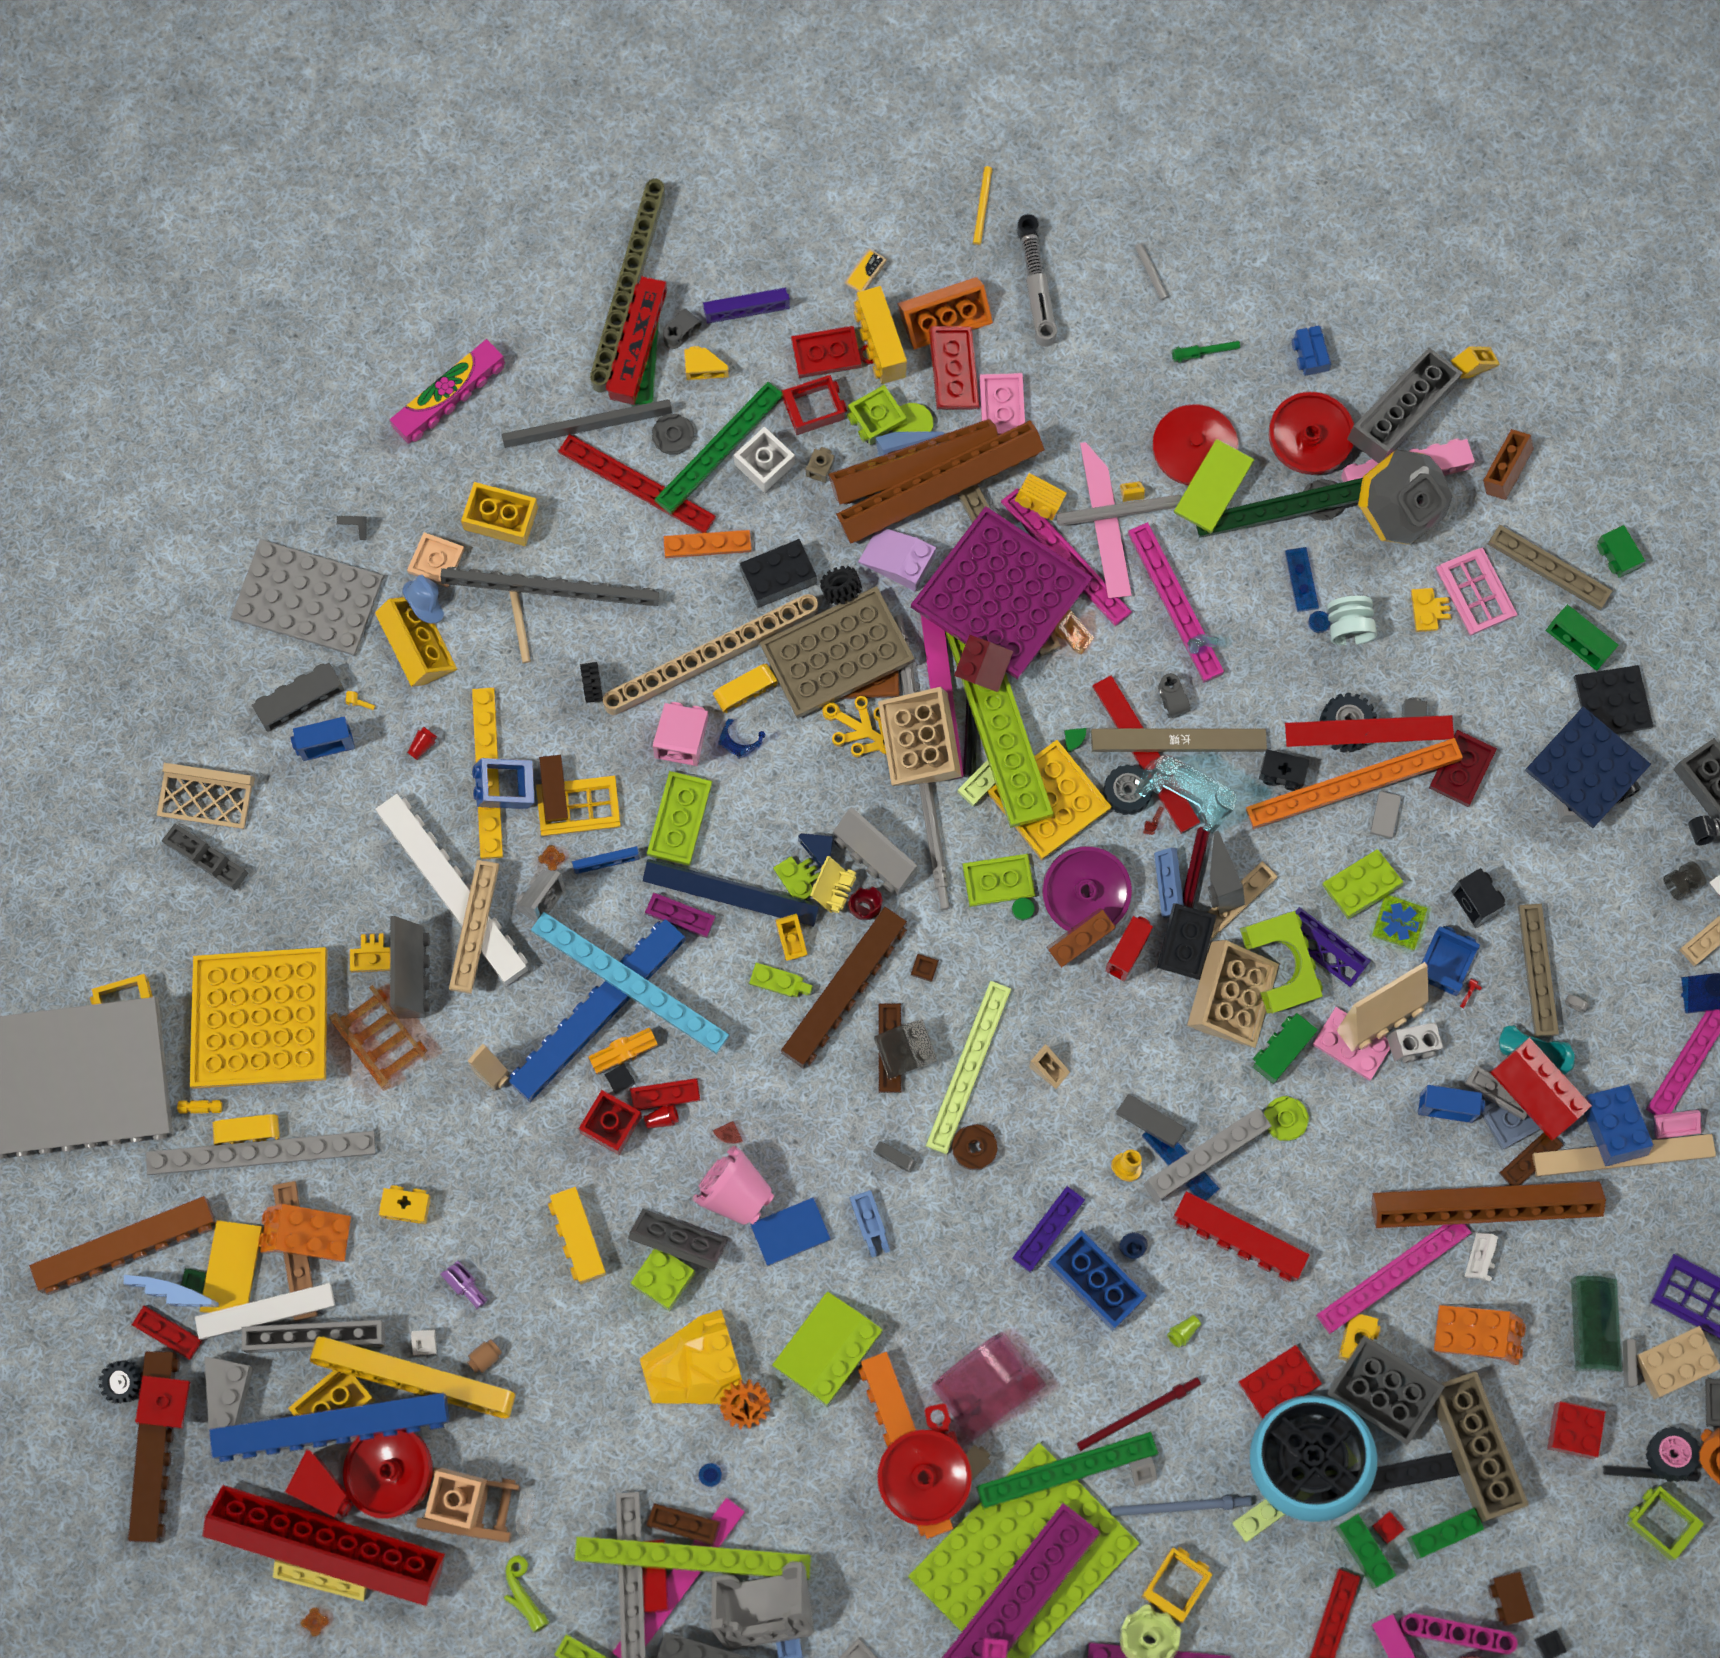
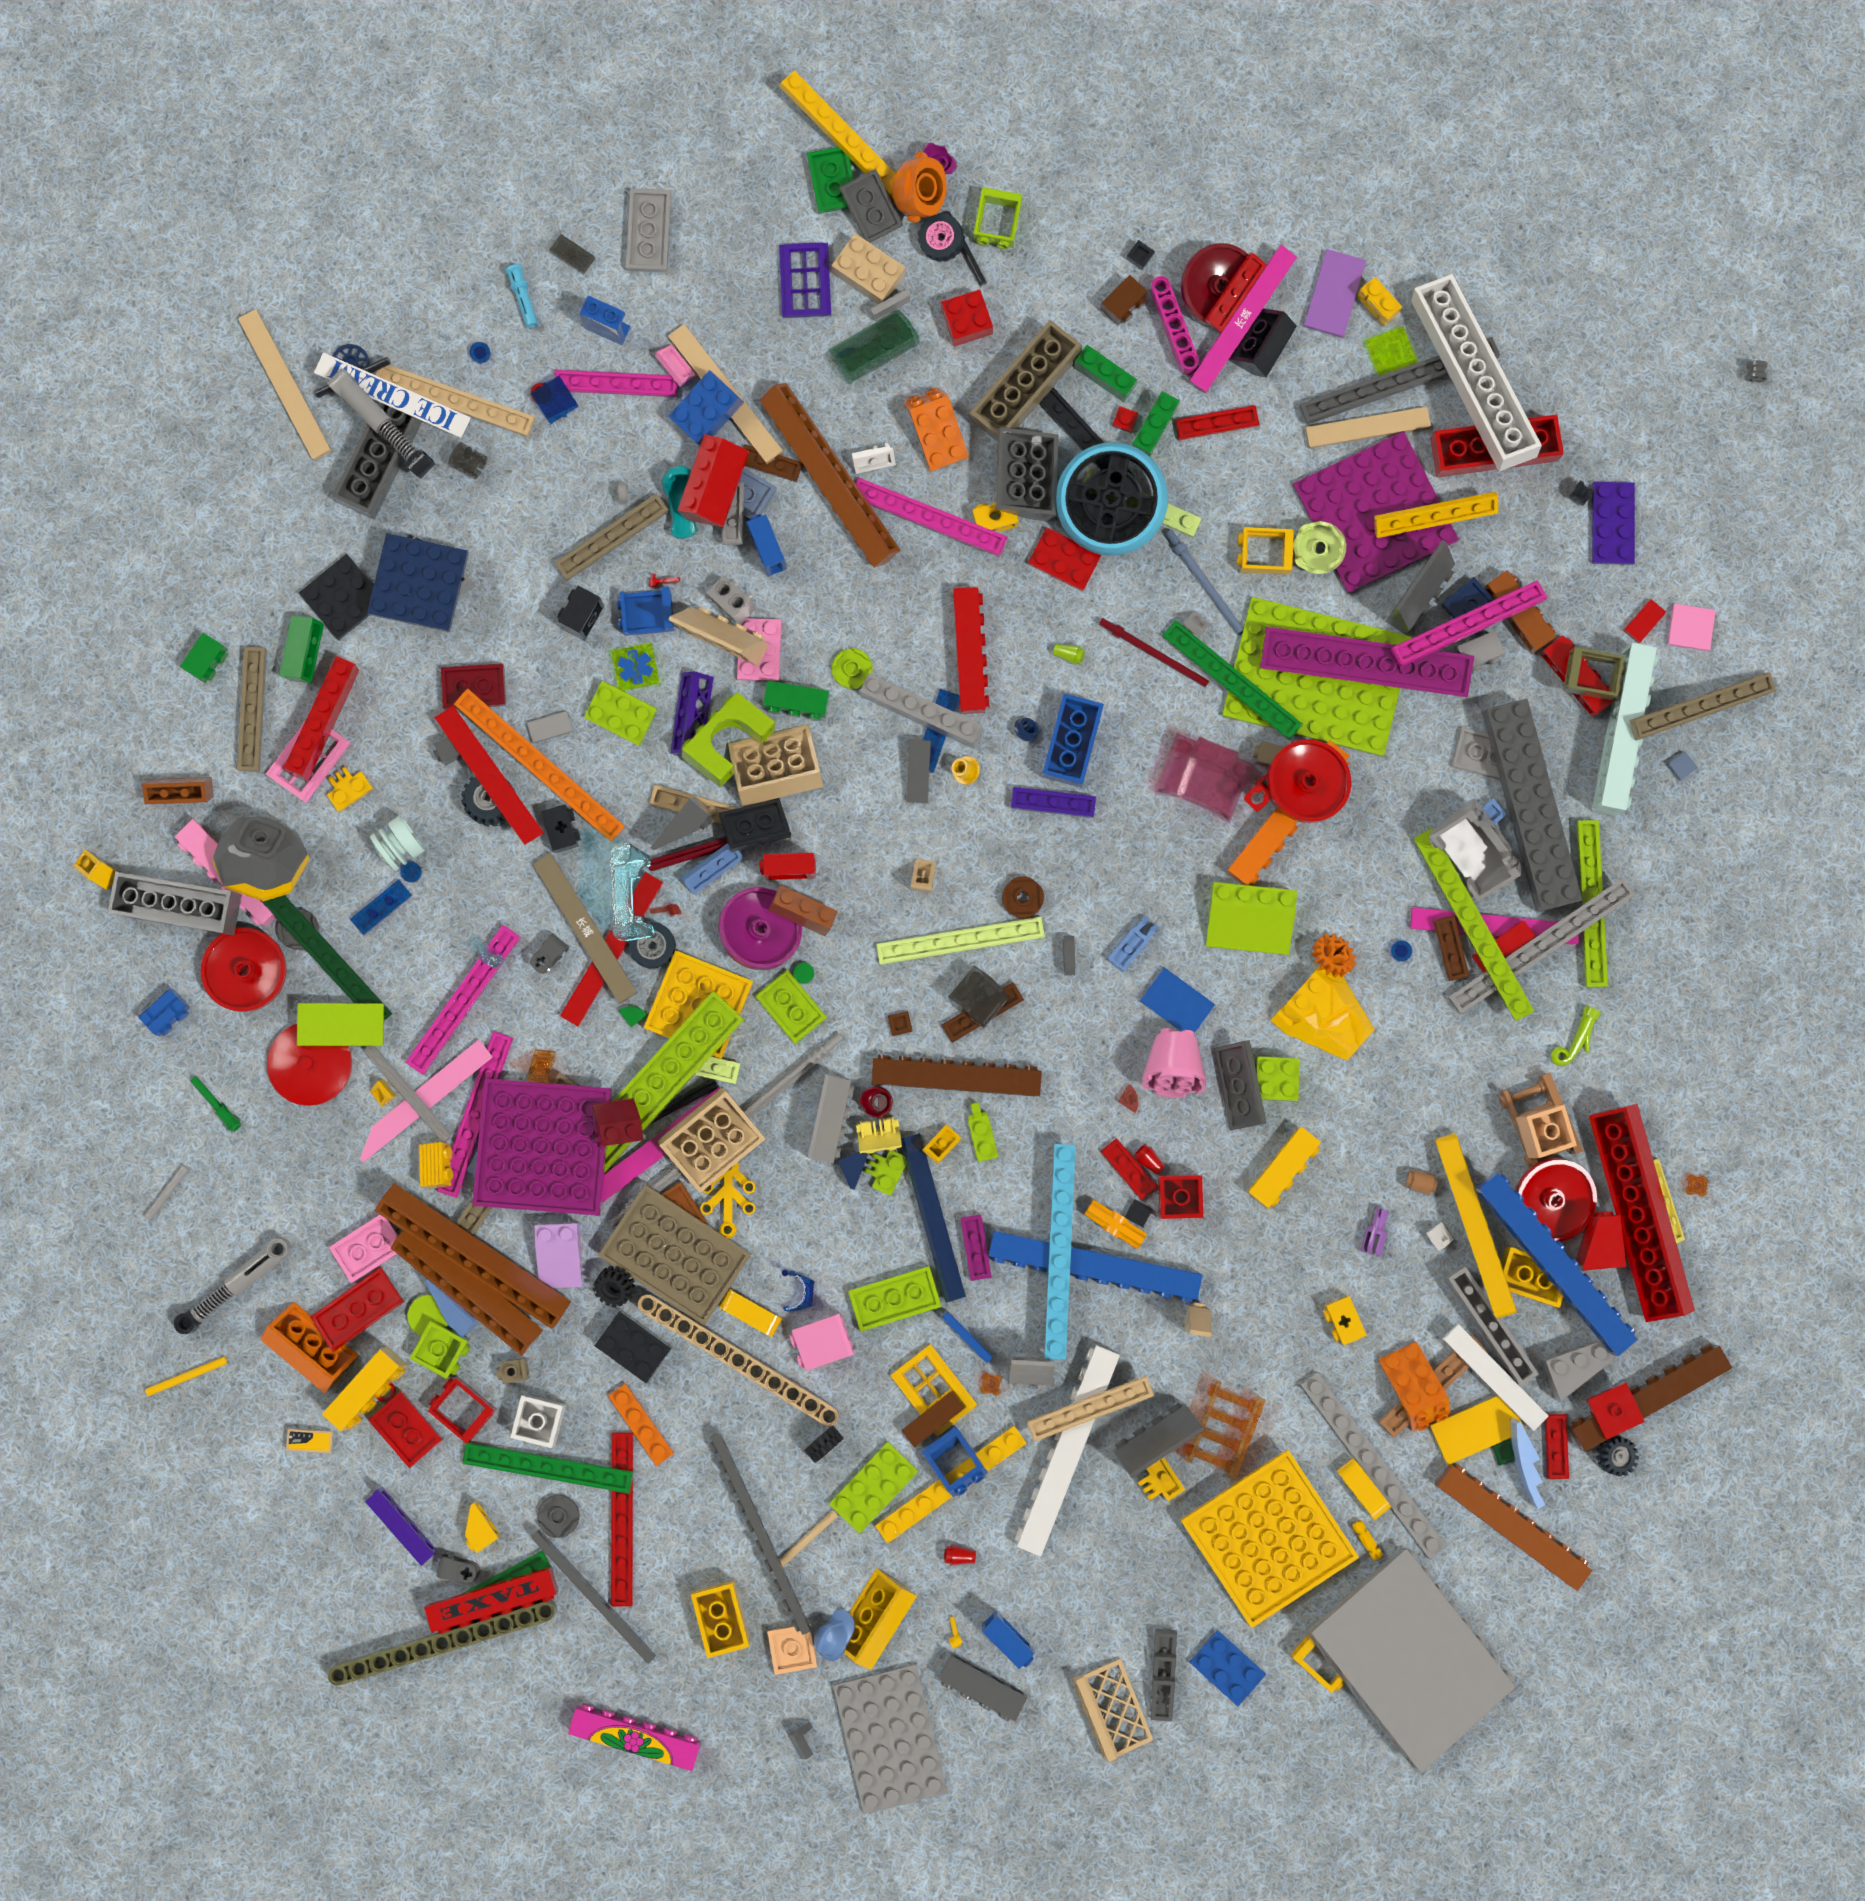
camera: 120 degrees left, 10 degrees up
(173, 916) = (1227, 1668): none -> blue plate
(527, 706) = (873, 1487): none -> lime plate
(1505, 618) = (321, 719): none -> red brick

